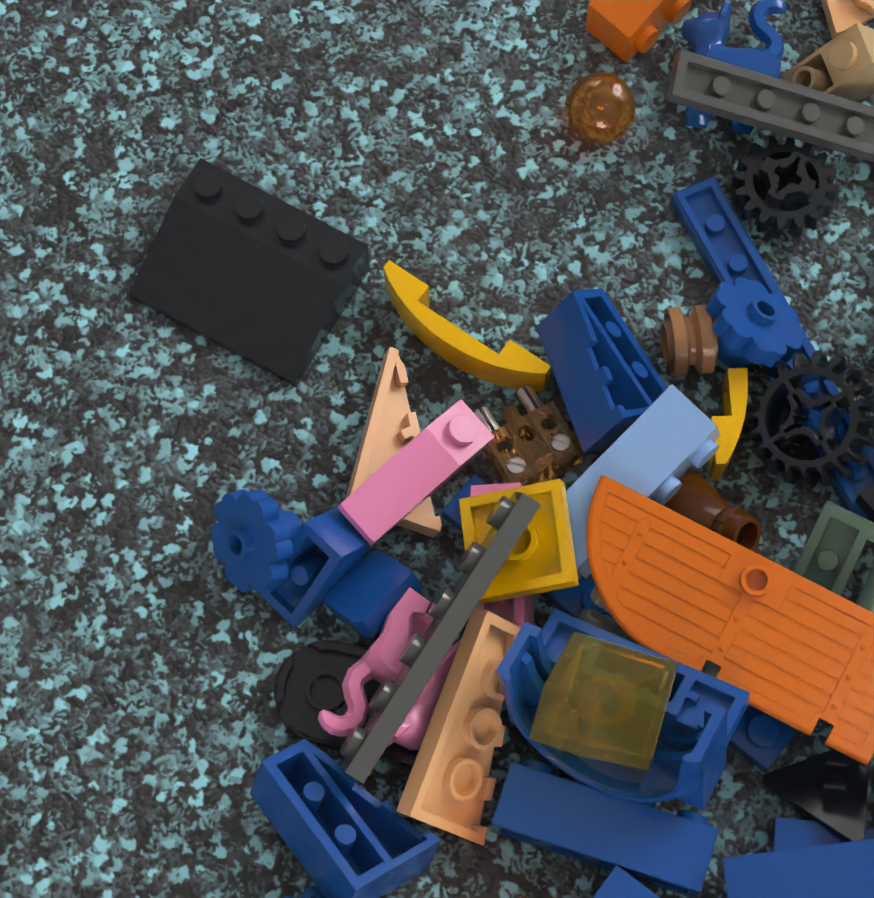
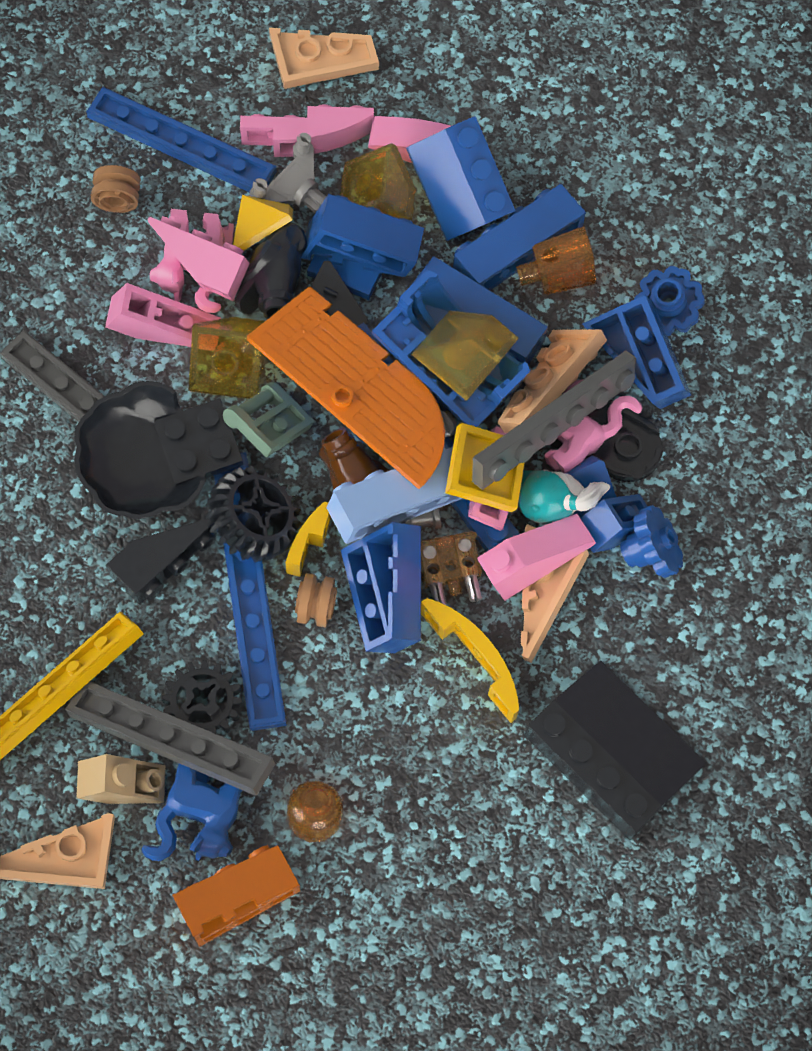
camera: 170 degrees left, 0 degrees up
(406, 551) = (556, 495): none -> teal hair
(753, 324) = (268, 589): blue plant -> none

